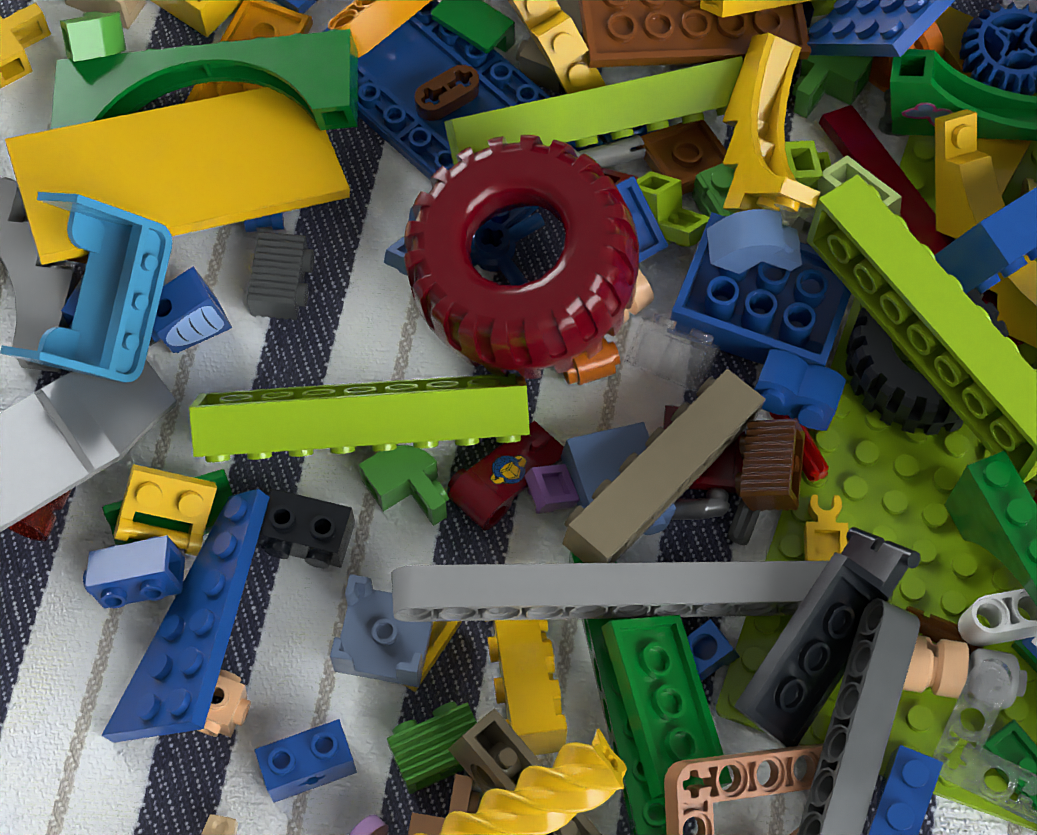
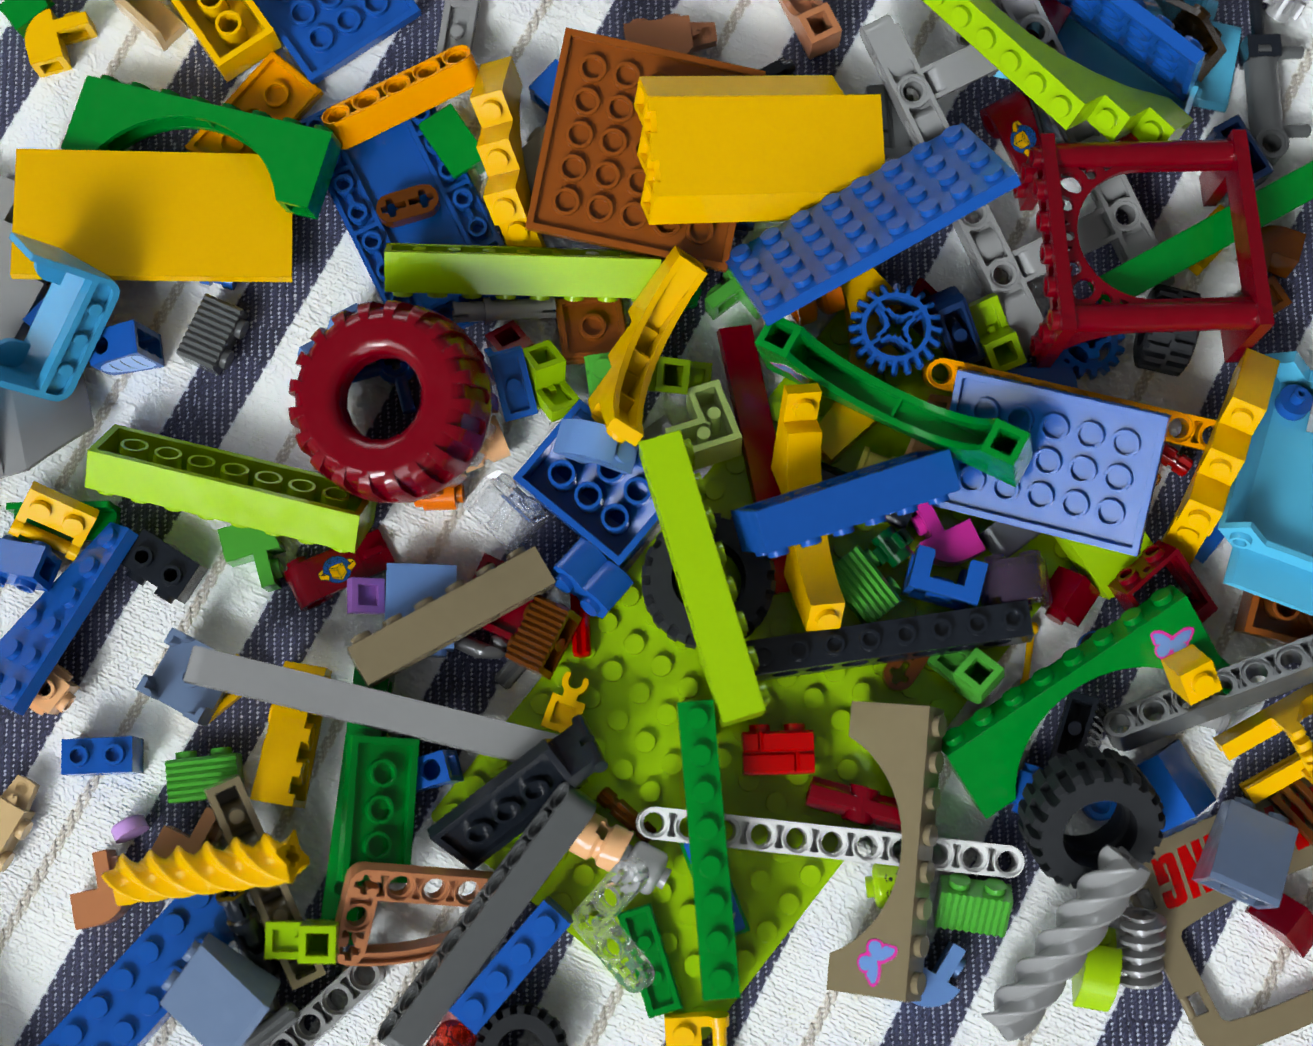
camera: 20 degrees right, 15 degrees up
(93, 35) = (122, 64): bright green brick -> none

